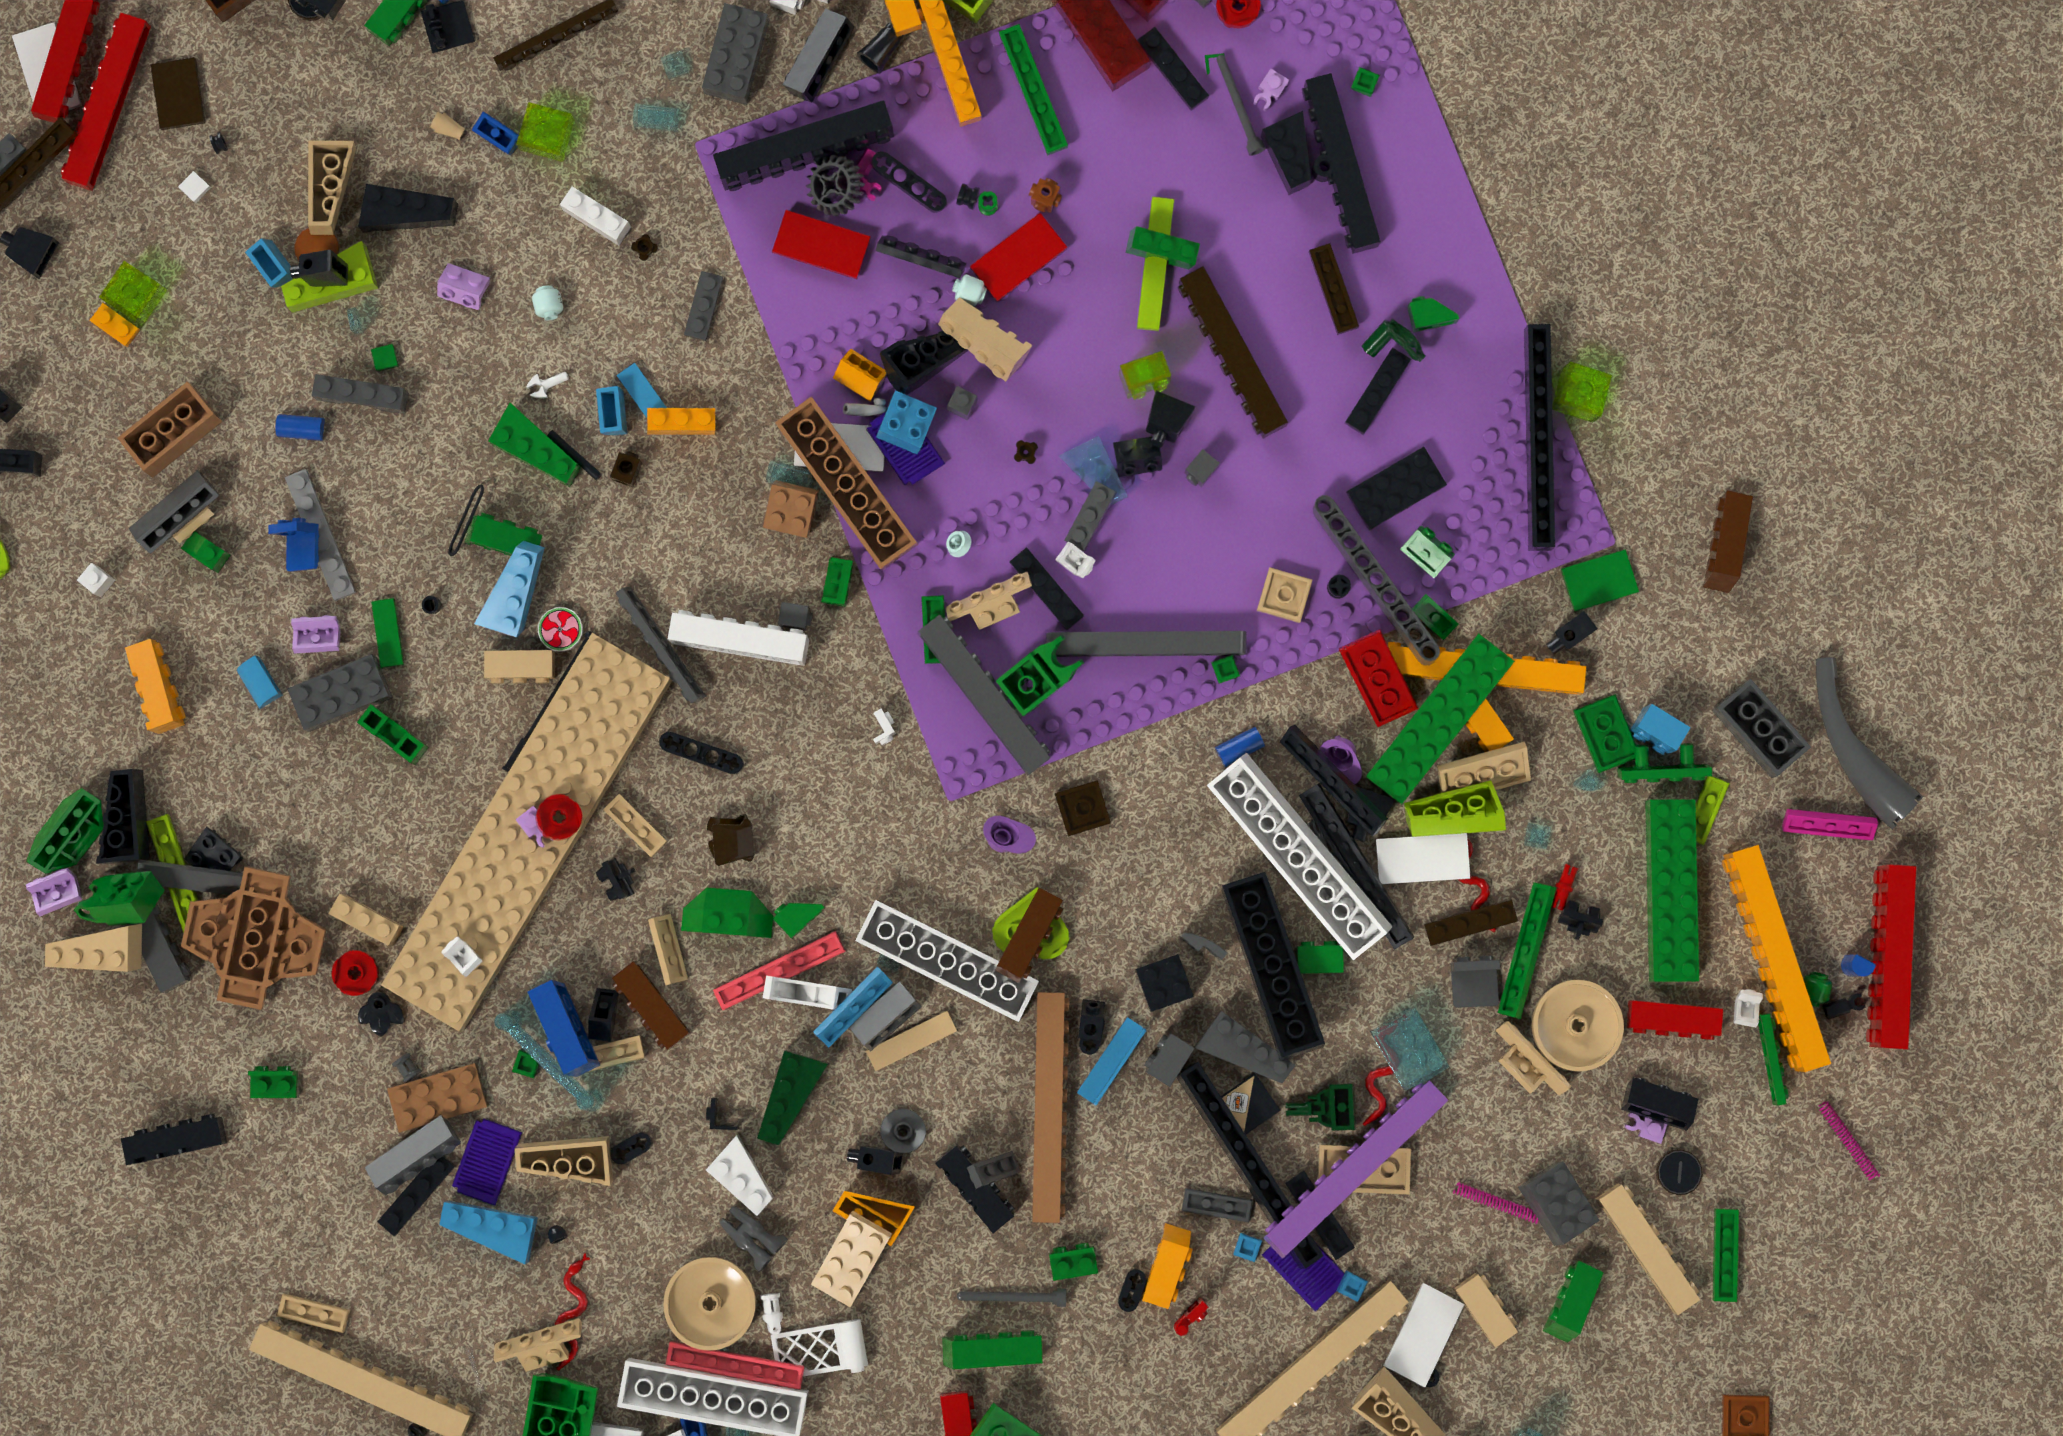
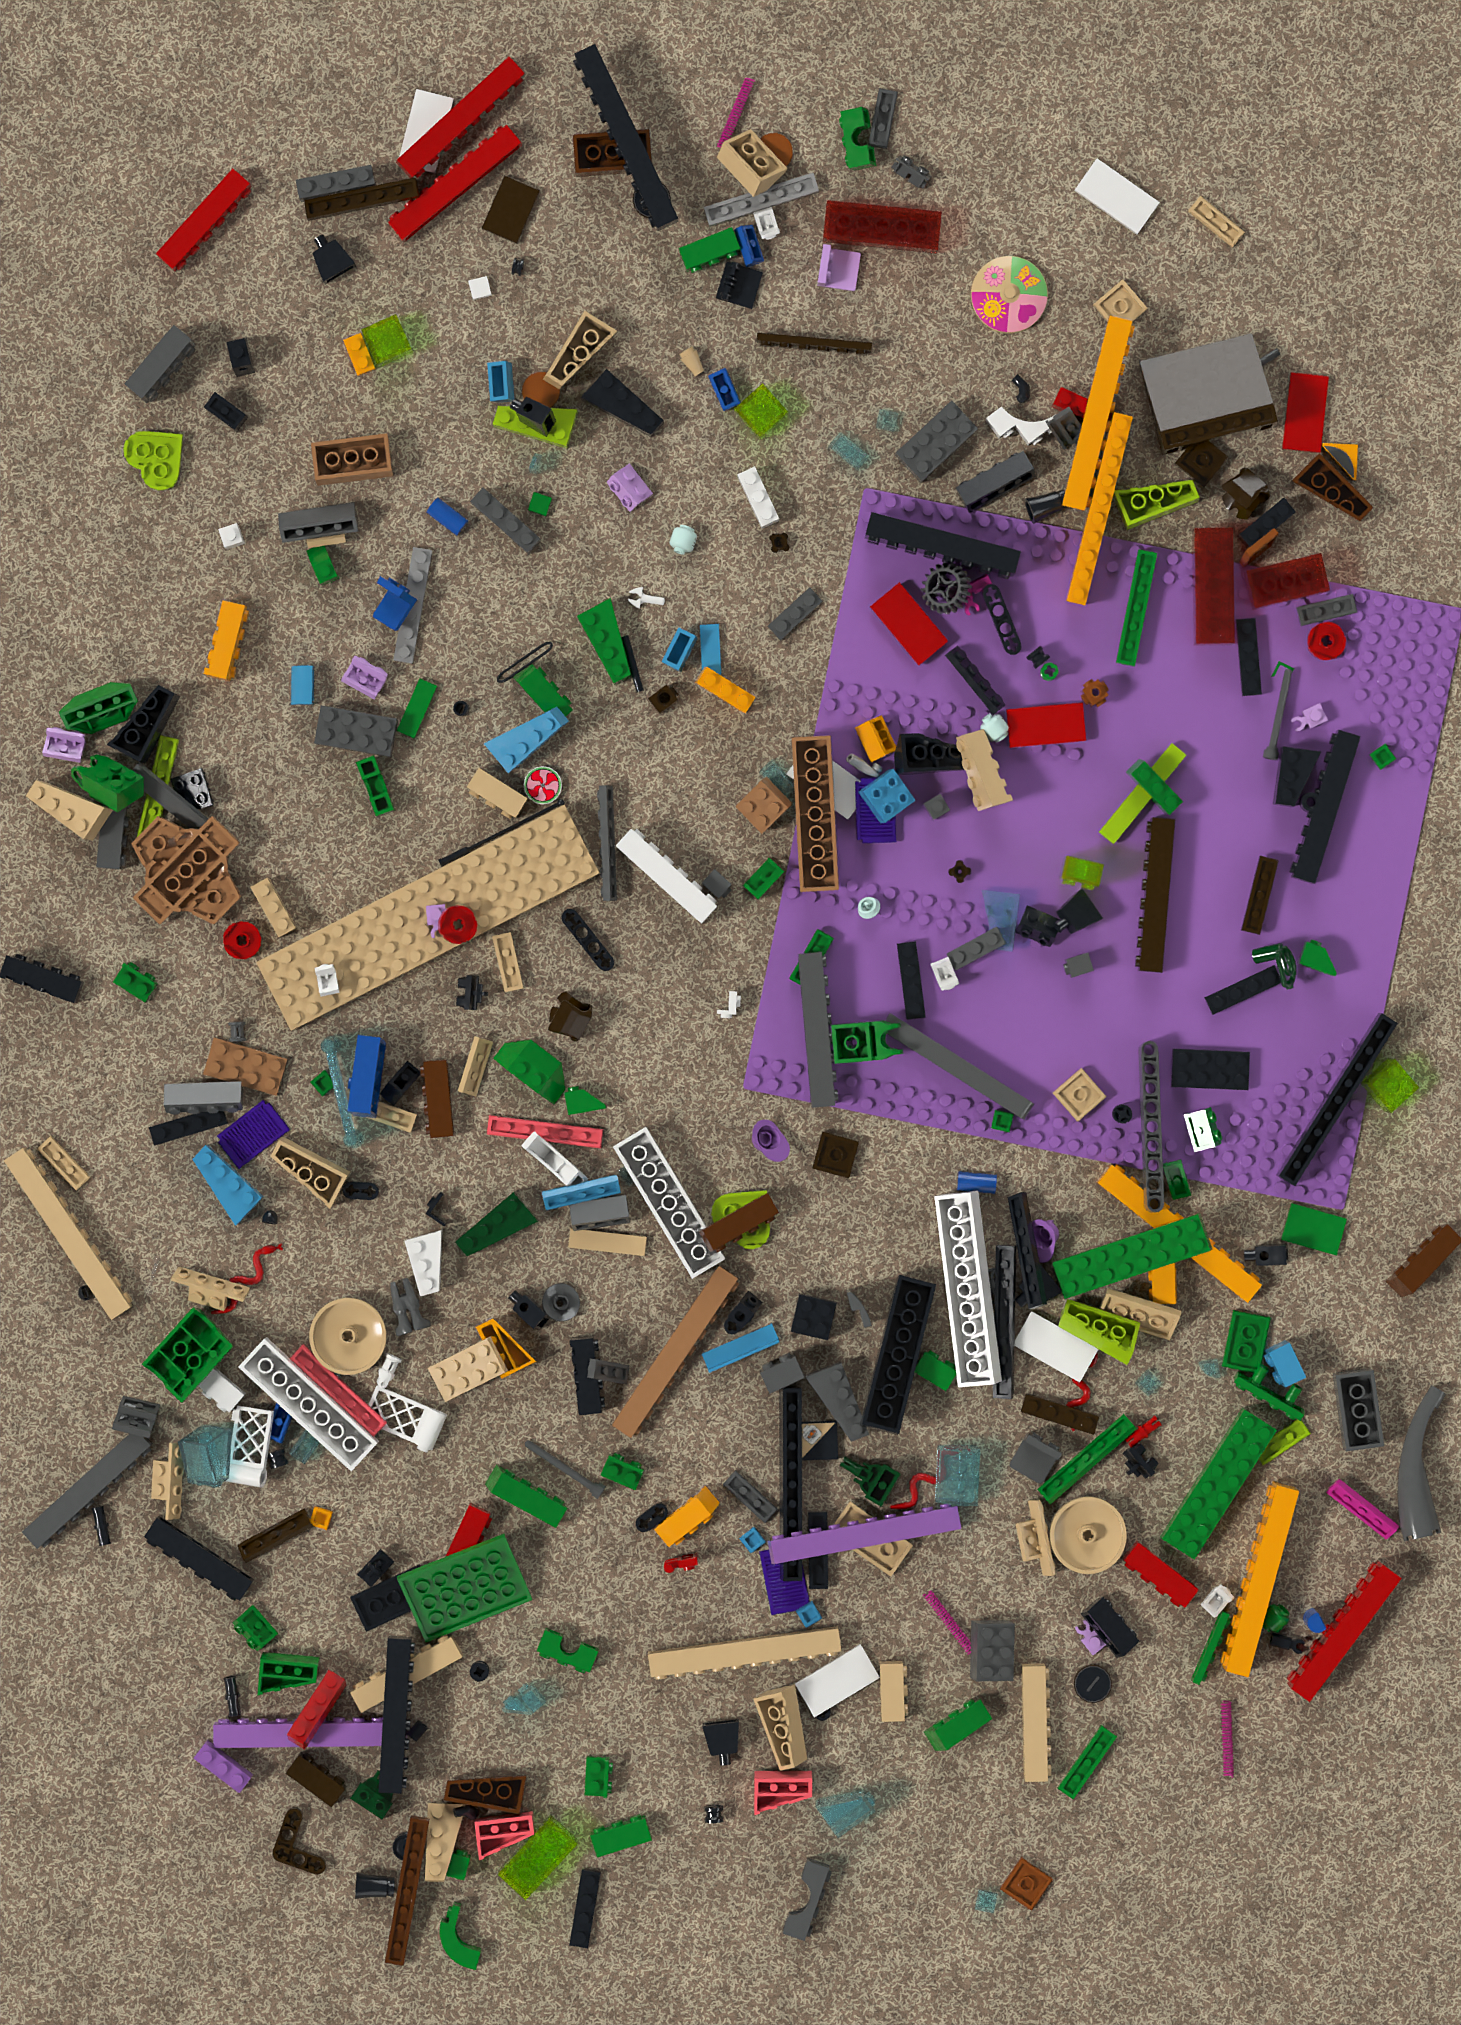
camera: 30 degrees right, 5 degrees up
(380, 1016) = (240, 983): black plate -> none
(992, 603) = (864, 966): tan bracket -> none
(1378, 678) = (1107, 1198): red tile -> none

